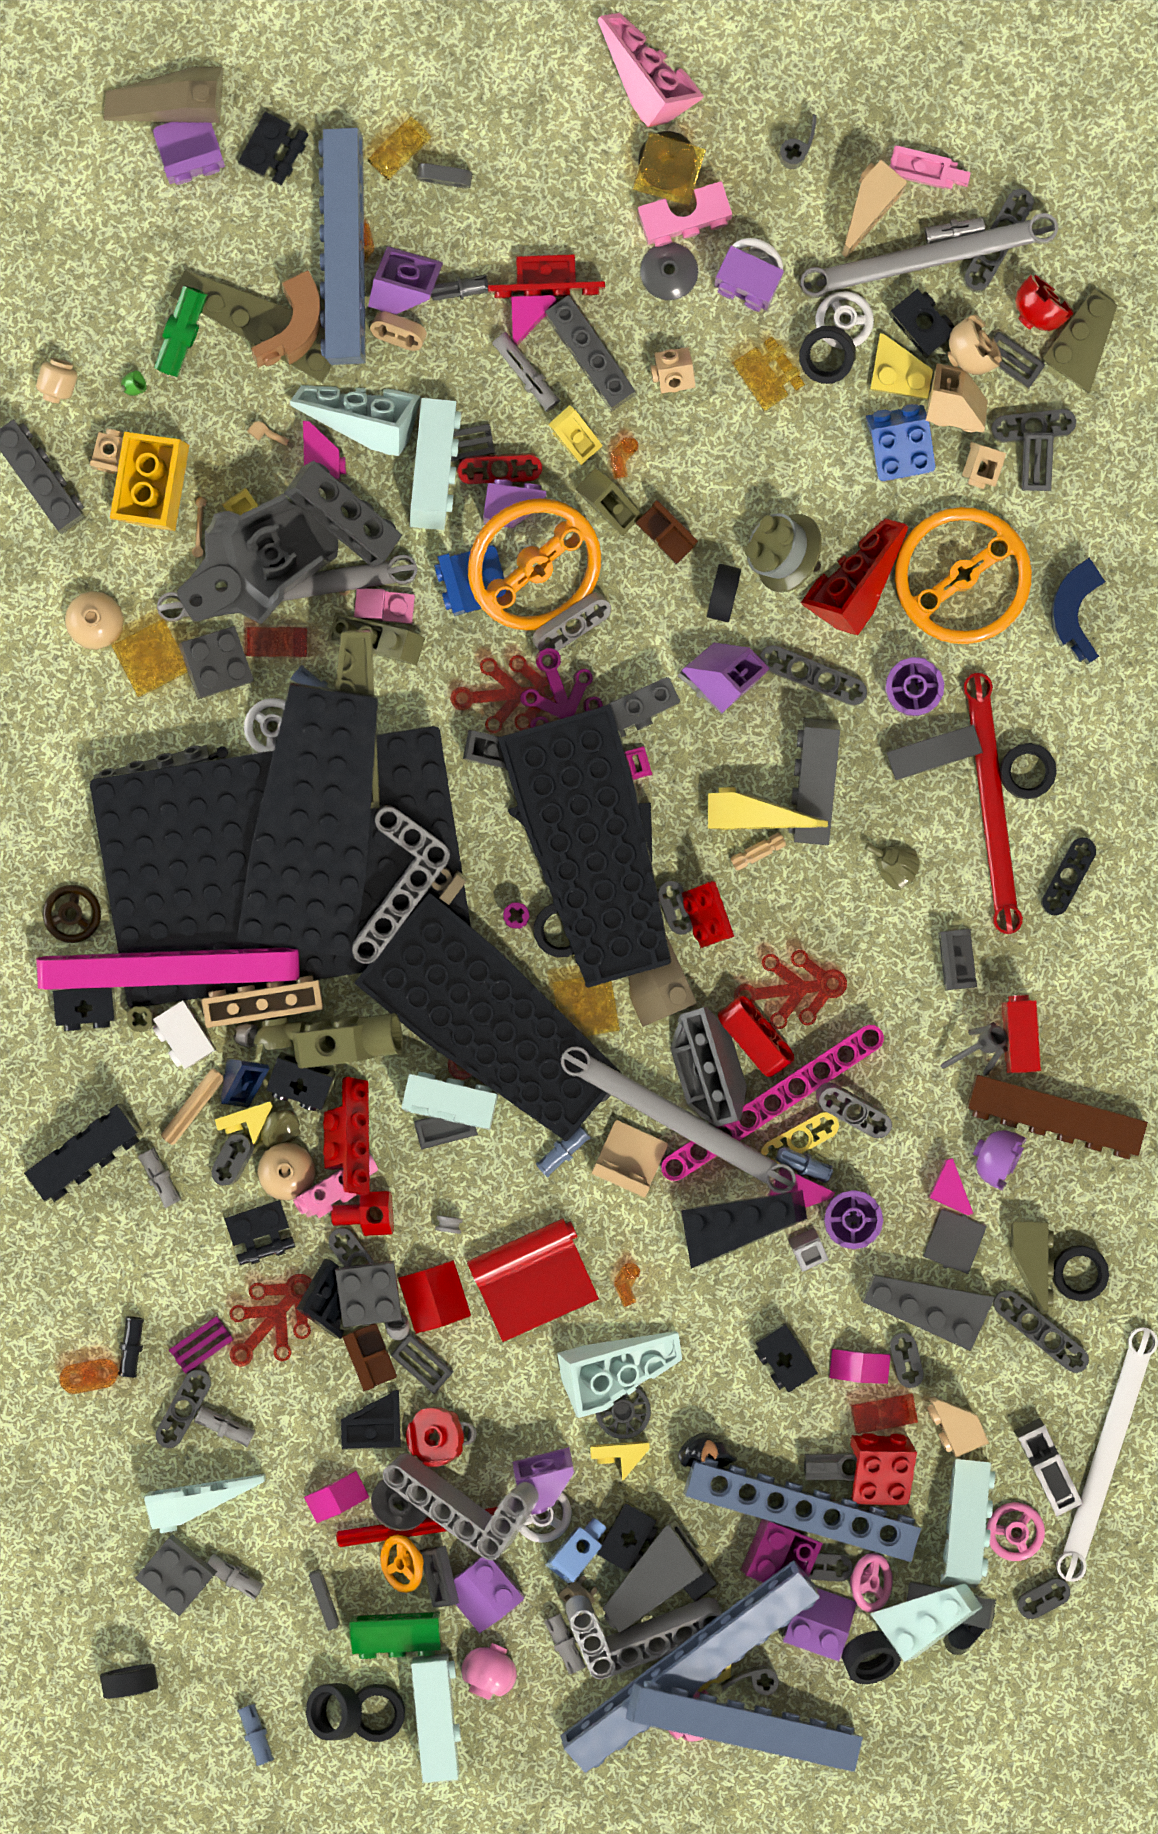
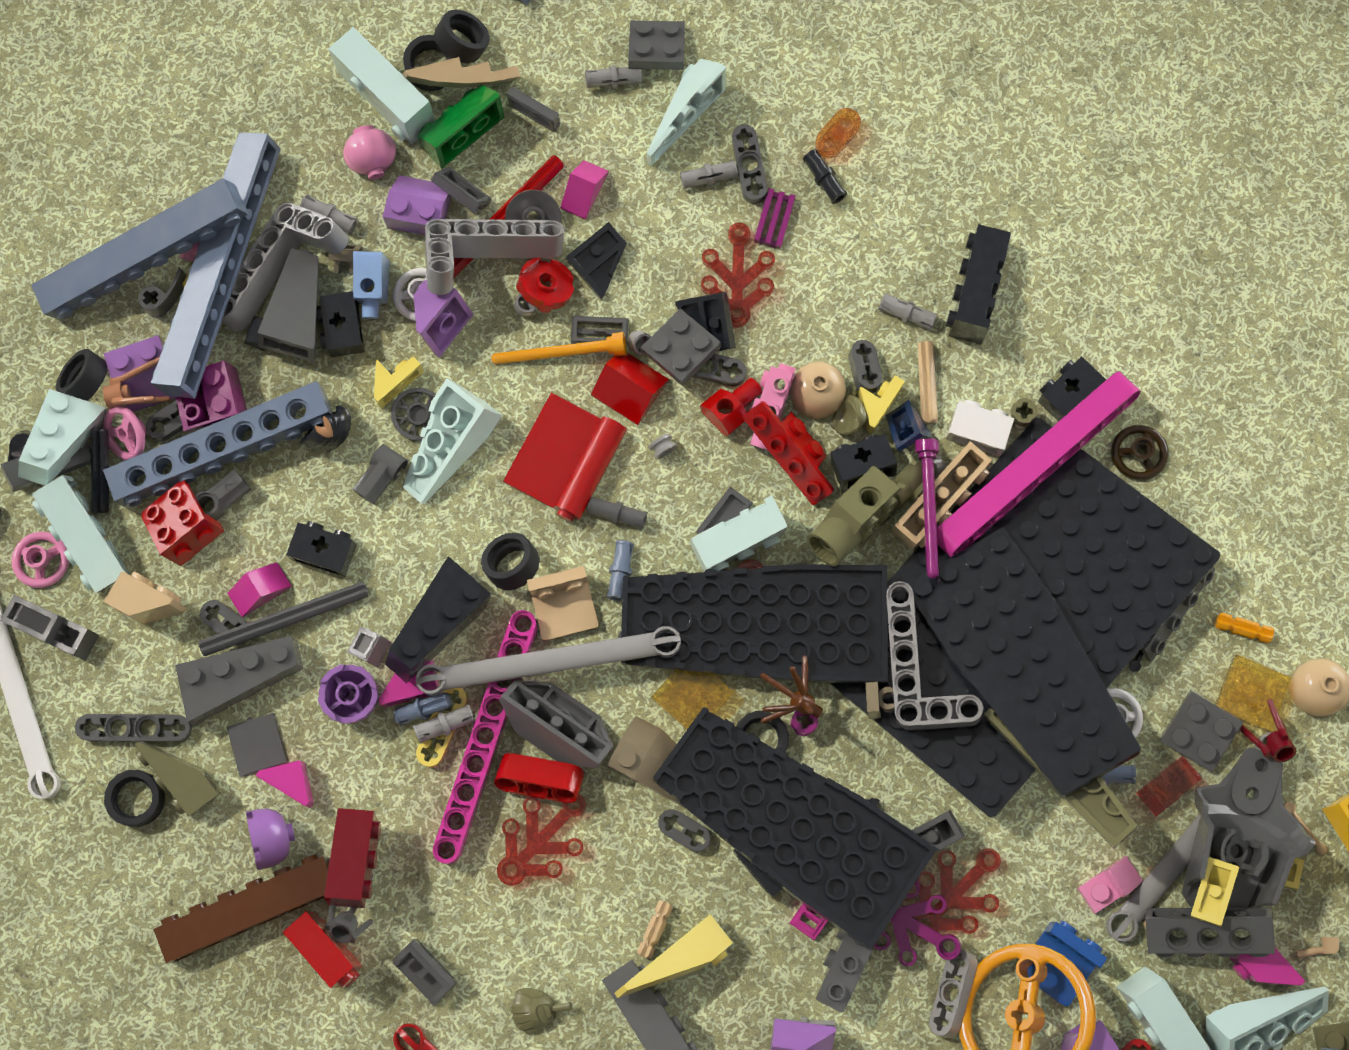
camera: 145 degrees right, 10 degrees down
(111, 712) = (1244, 628): none -> light orange axle
(170, 604) = (1278, 742): none -> dark red plant
(249, 1044) = (927, 453): none -> magenta piece
(256, 1224) = (806, 337): black plate -> none
(319, 539) = (1215, 892): none -> light yellow slope
(369, 1356) = (643, 303): reddish brown panel -> none
(369, 1679) = (451, 74): none -> tan slope
(386, 640) = (1089, 856): olive slope -> none
(408, 1561) = (493, 180): light orange piece -> none
(422, 1340) = (614, 344): none -> light orange piece
(508, 932) = (800, 700): none -> reddish brown plant
(528, 1199) = (617, 512): none -> dark grey pin
(624, 1282) = (493, 510): clear orange arm -> none
(645, 1245) = (498, 550): none -> black tyre
(687, 1385) = (382, 470): none -> dark grey piece
(707, 914) = (654, 844): red bracket -> none
(797, 1137) = (444, 724): none -> light grey pin
(853, 1613) = (120, 395): none -> nougat plant
(858, 1324) = (283, 618): none -> dark grey axle
(859, 1121) = (427, 785): dark grey beam -> none
(884, 1413) = (211, 567): clear red slope -> none
(915, 1567) = (99, 462): none -> black axle
(945, 1085) = (352, 858): none -> dark red wedge

